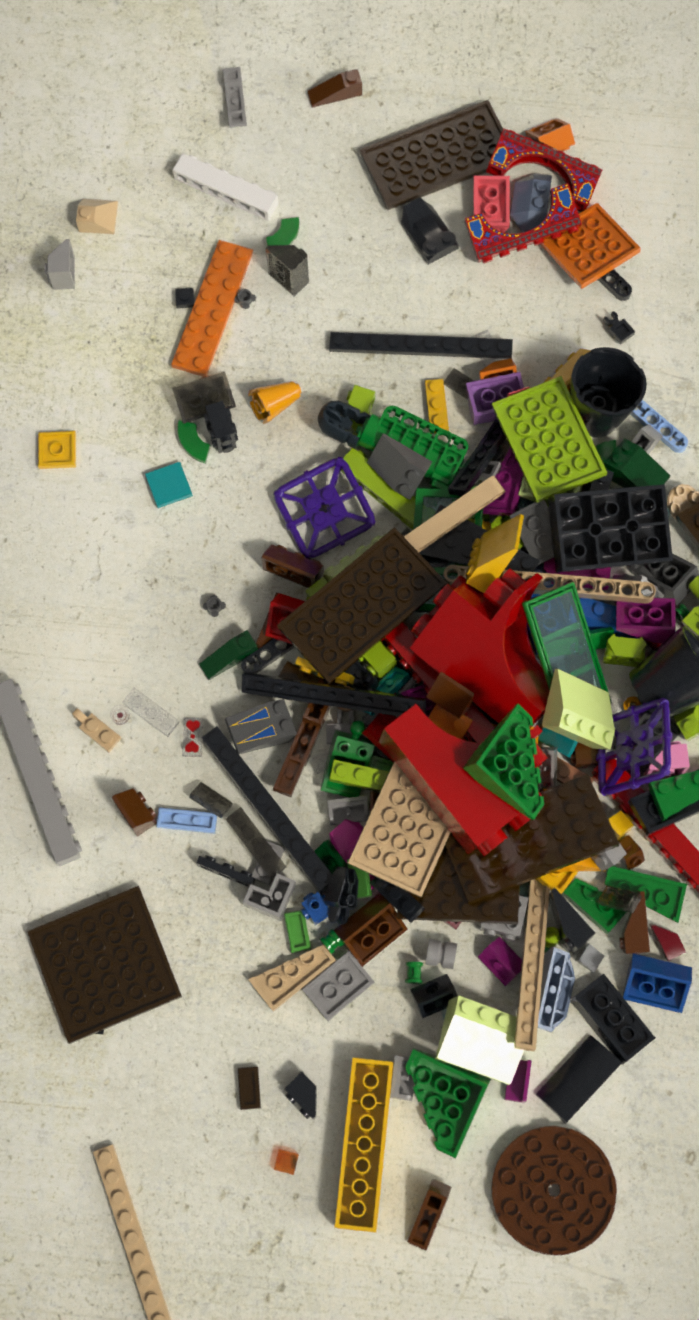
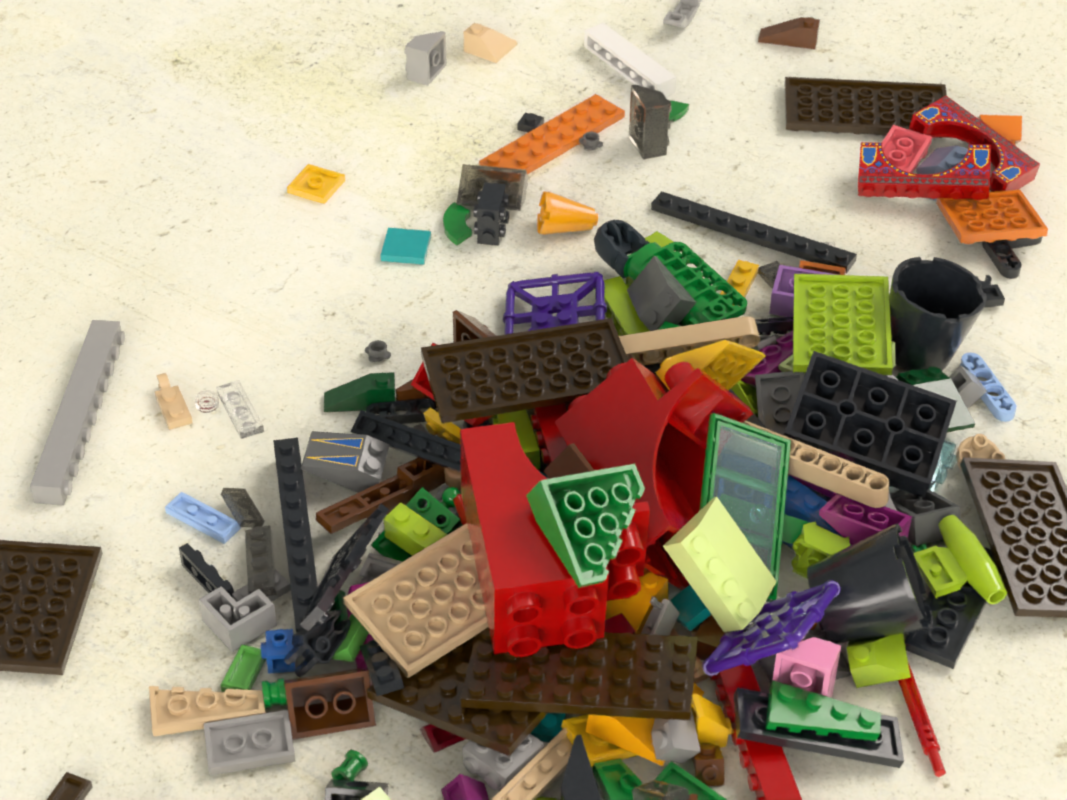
camera: 25 degrees right, 30 degrees down
(134, 810) = (151, 478): reddish brown slope -> none
(192, 738) = (263, 452): clear tile -> none
(322, 826) = (342, 563): none -> black wing
(427, 230) = (818, 155): black slope -> none
(441, 954) = (398, 763): light grey wheel -> none

